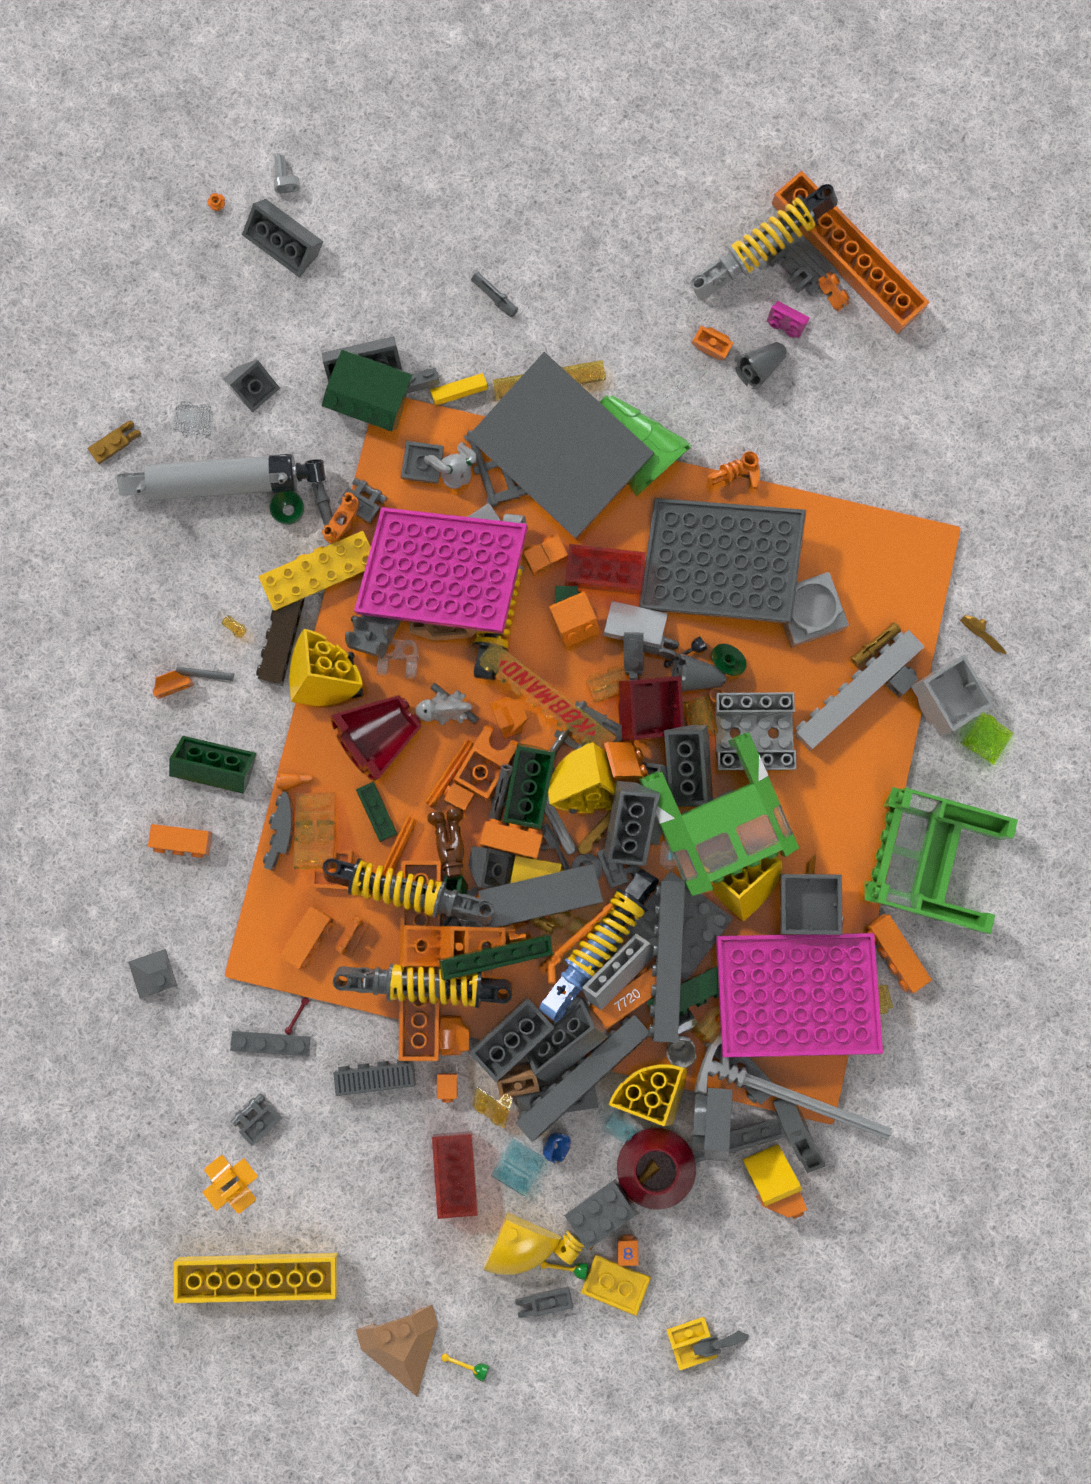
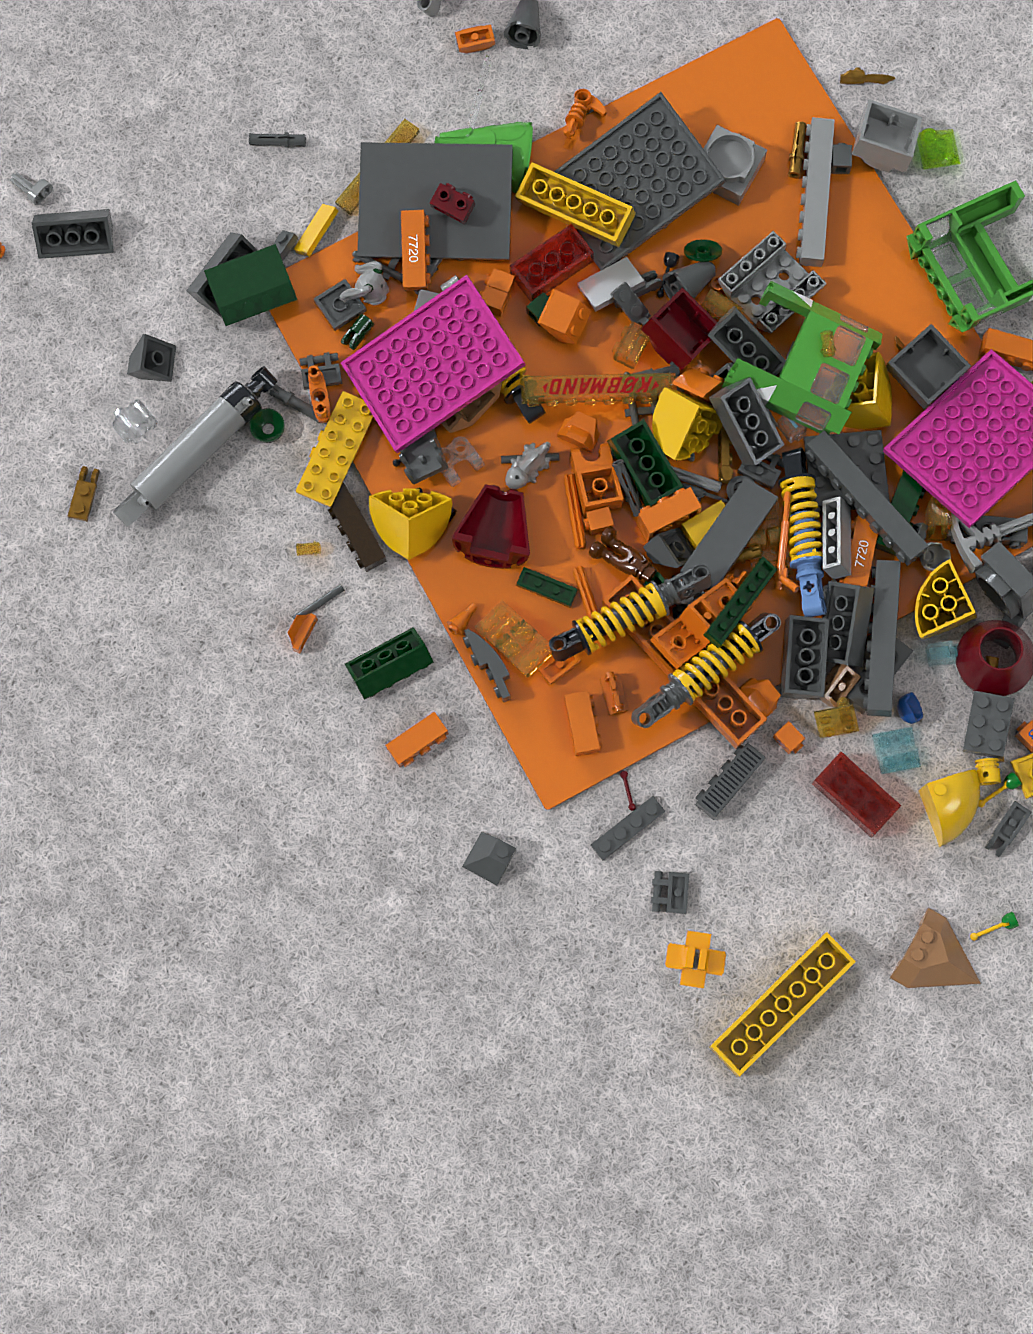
camera: 40 degrees left, 5 degrees down
(415, 495) = (357, 332): none -> dark green hinge
(510, 469) = (415, 250): none -> orange brick
(567, 459) = (452, 203): none -> dark red brick
(662, 540) = (575, 204): none -> yellow brick
(741, 822) = (828, 348): none -> clear yellow pin

